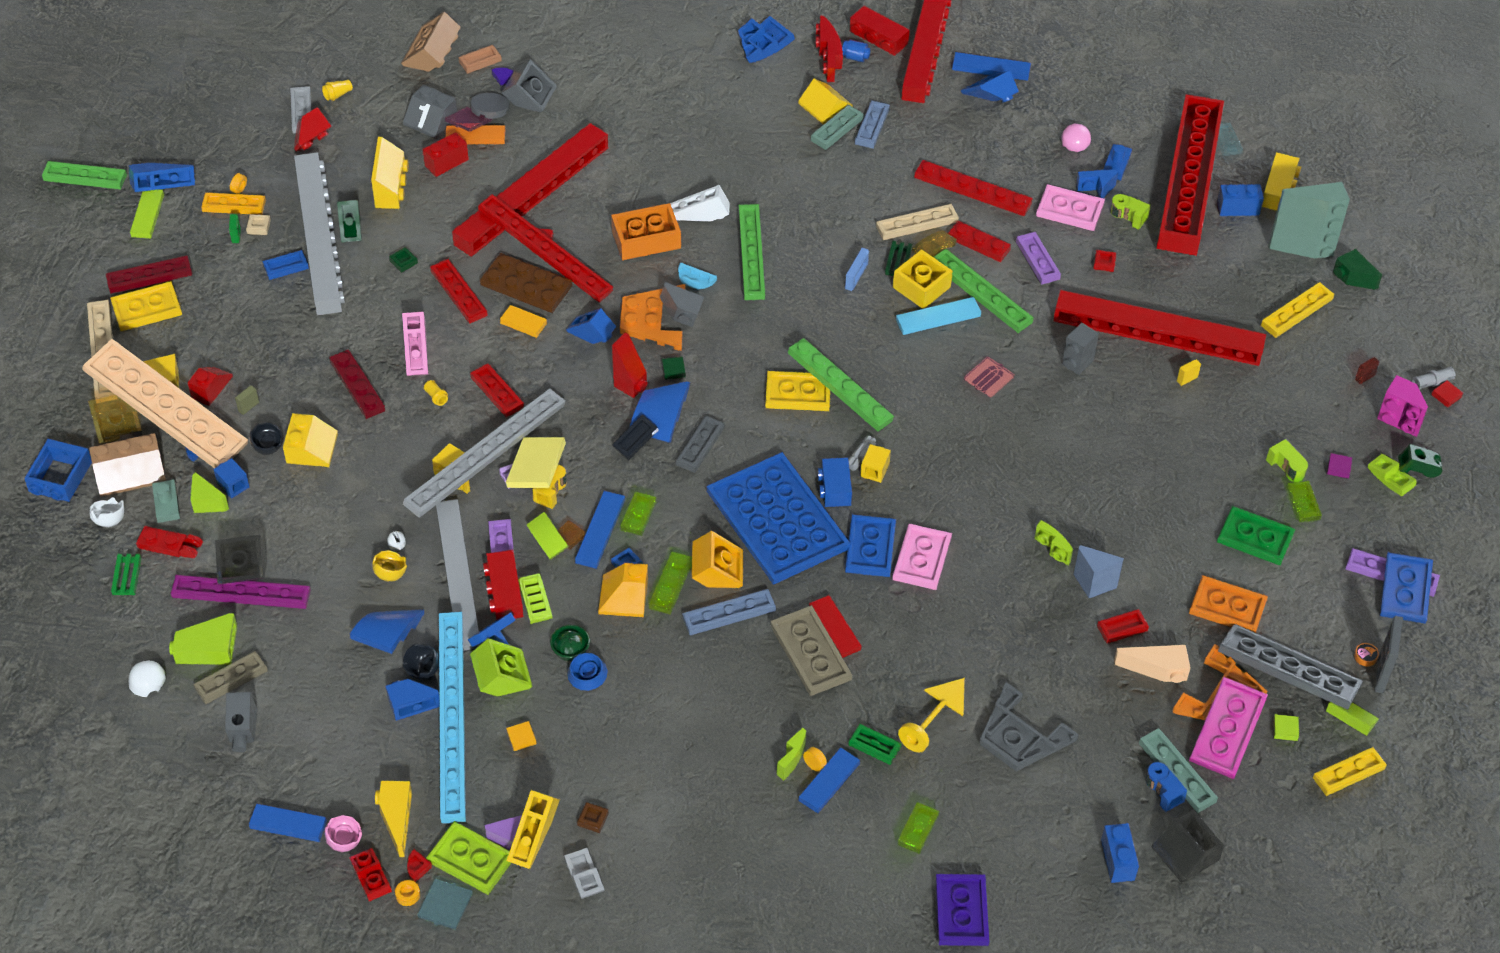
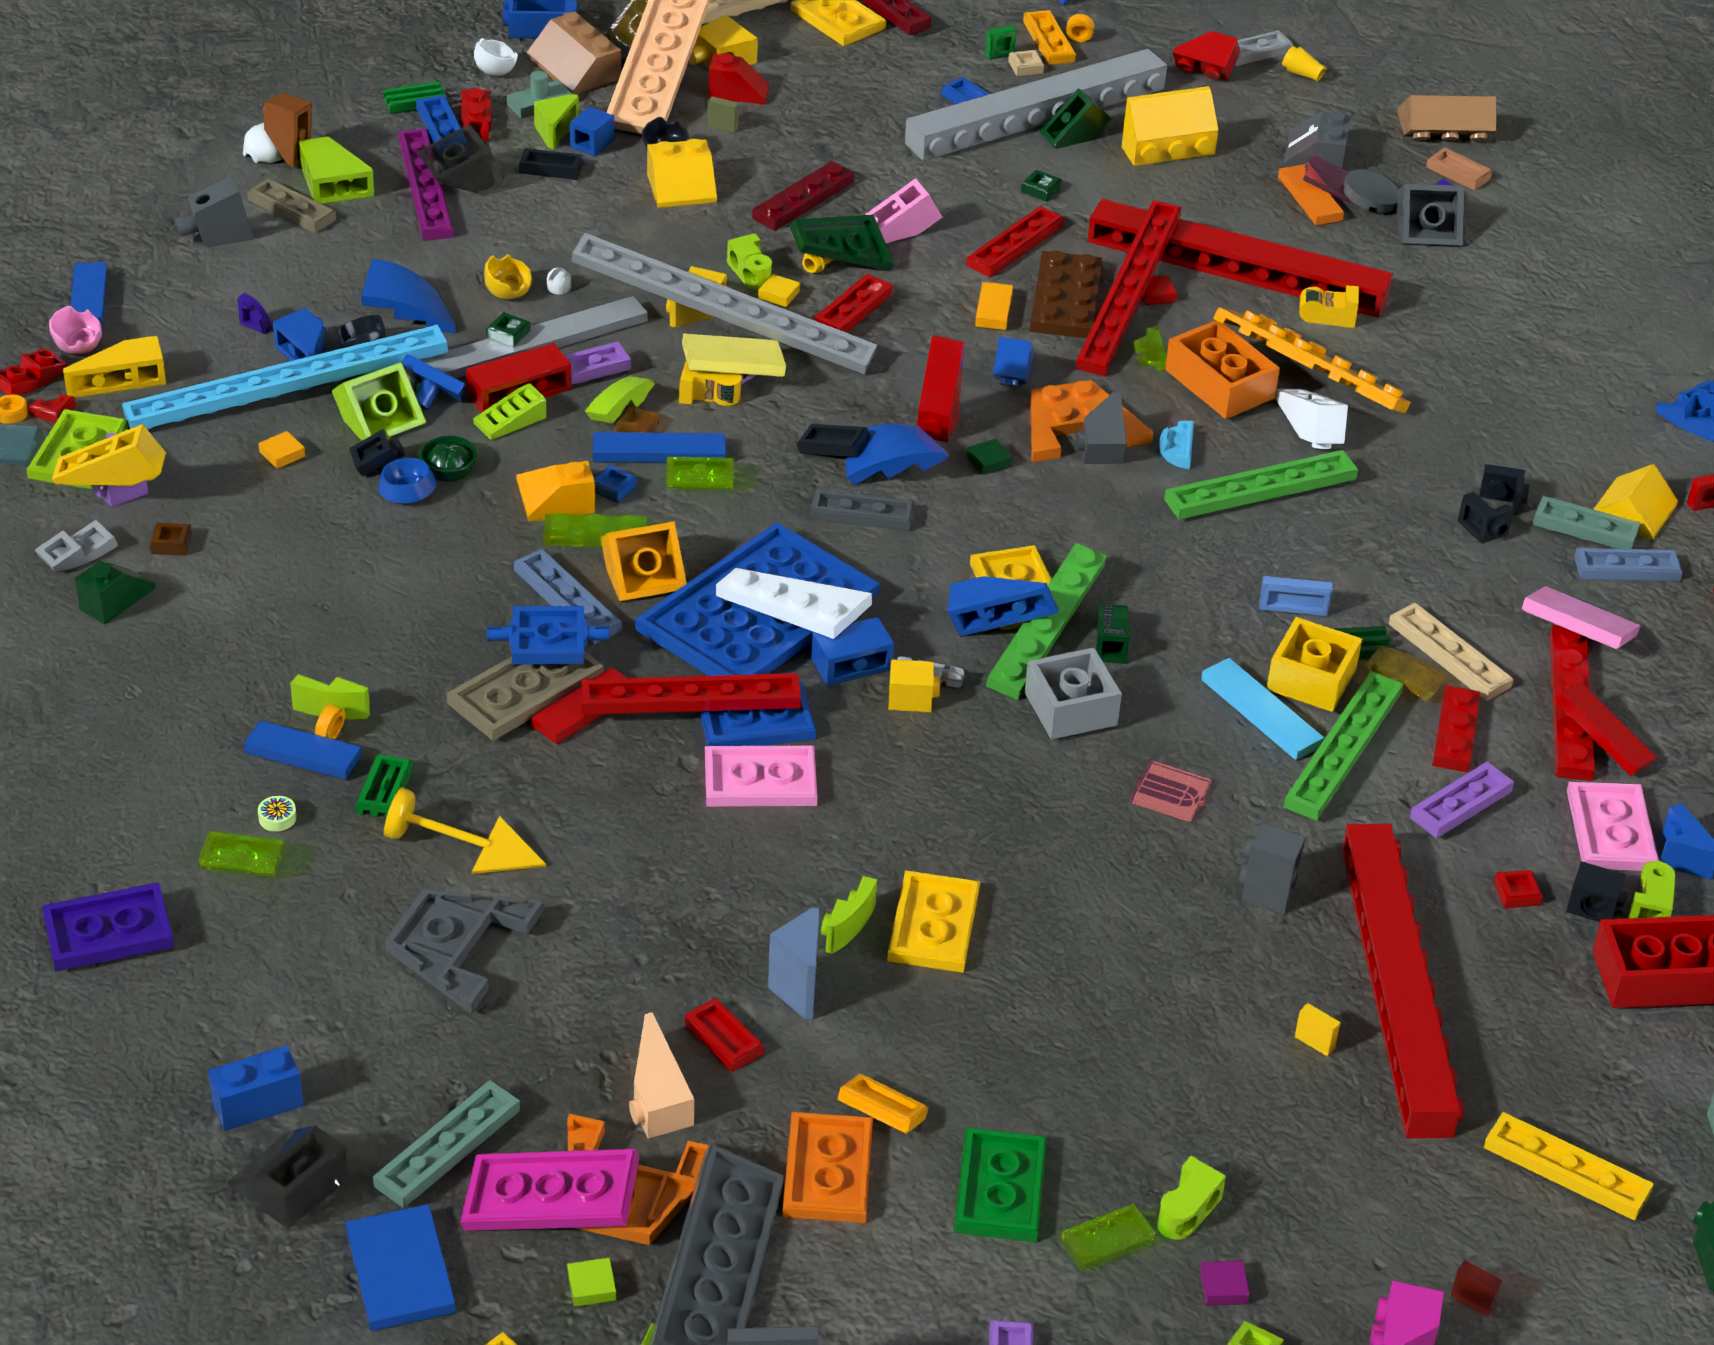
camera: 70 degrees right, 10 degrees down
(155, 650) = (286, 122): none -> dark orange slope
(176, 564) = (437, 117): none -> blue plate
(251, 513) = (551, 164): none -> black tile
(363, 723) = (253, 314): none -> dark purple tile
(427, 430) = (749, 262): none -> lime leg
(435, 372) = (844, 239): none -> dark green wing
(445, 154) = (1247, 171): red brick -> none
(449, 578) = (508, 329): none -> dark green tile
(459, 424) = (779, 290): none -> yellow tile
(553, 681) = (376, 452): none -> black bracket
(598, 163) = (1329, 306): none -> yellow leg
(607, 257) = (1153, 348): none -> clear neon green tile
(642, 857) = (109, 590): none -> dark green slope
(649, 189) = (1313, 356): none -> light orange wing
(783, 623) = (548, 634): none -> blue plate
(795, 146) = (1504, 485): none -> black bracket
(797, 491) = (799, 602): none -> white wing
(819, 168) = (1483, 520): none -> black bracket
(825, 402) = (997, 602): none -> blue slope
(855, 568) = (690, 693): none -> red plate
(857, 359) = (1114, 630): none -> dark green leg
(883, 804) = (277, 813): none -> tile
(912, 390) = (1072, 693): none -> light grey brick
(917, 157) = (1580, 617): none -> bright pink tile
(1008, 180) = (1605, 728): none -> red tile
(1061, 509) = (934, 921): none -> yellow tile
(1122, 230) = (1597, 893): none -> black brick
(1166, 785) = (393, 1137): blue leg -> none
(1193, 568) = (883, 1103): none -> light orange tile
(1258, 812) = (400, 1267): none -> blue tile

